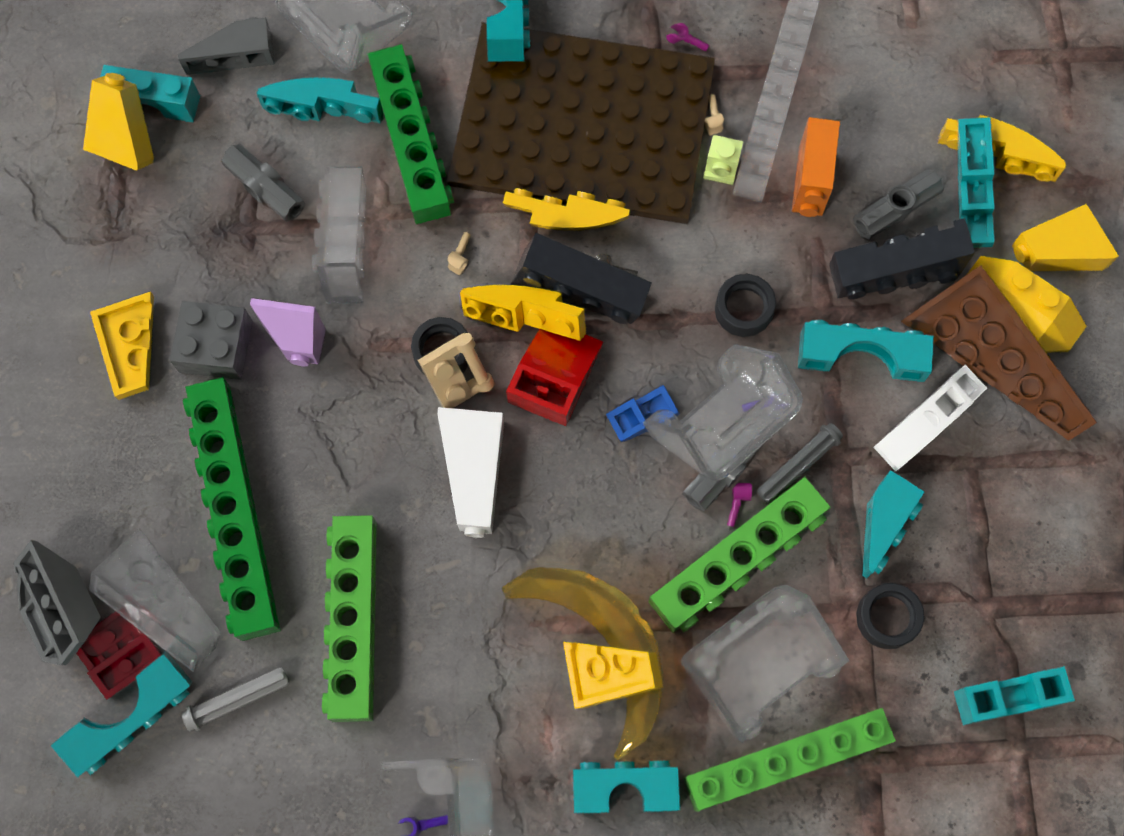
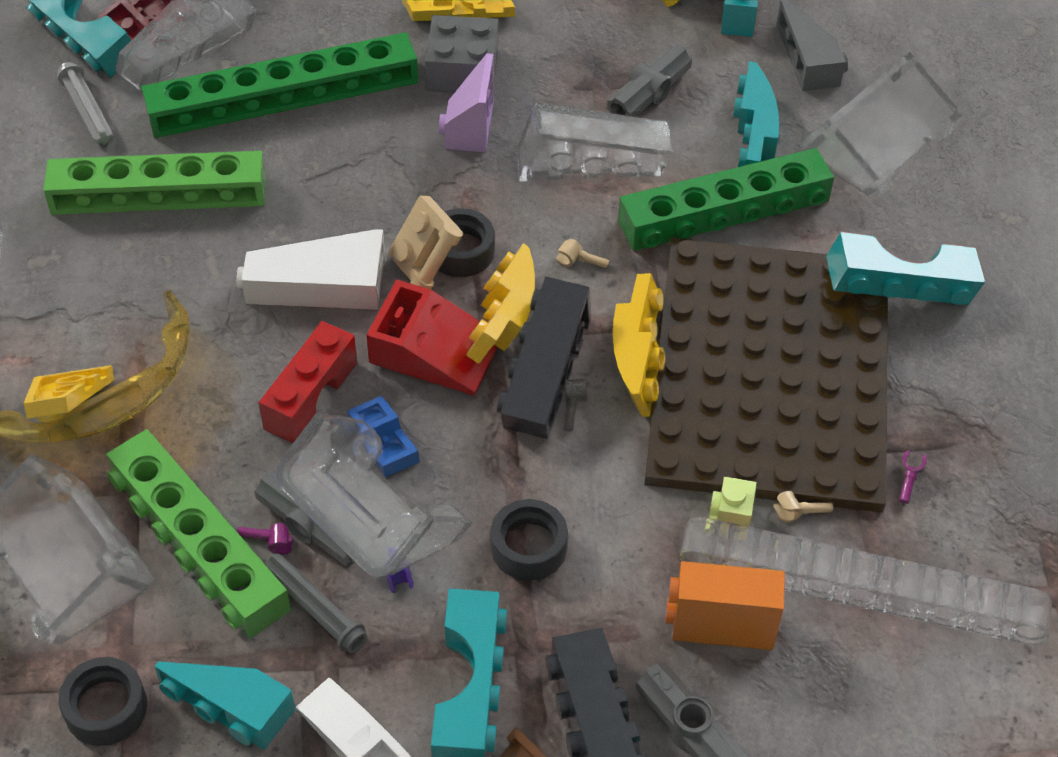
camera: 85 degrees right, 20 degrees down
(608, 475) = (292, 398): none -> red arch

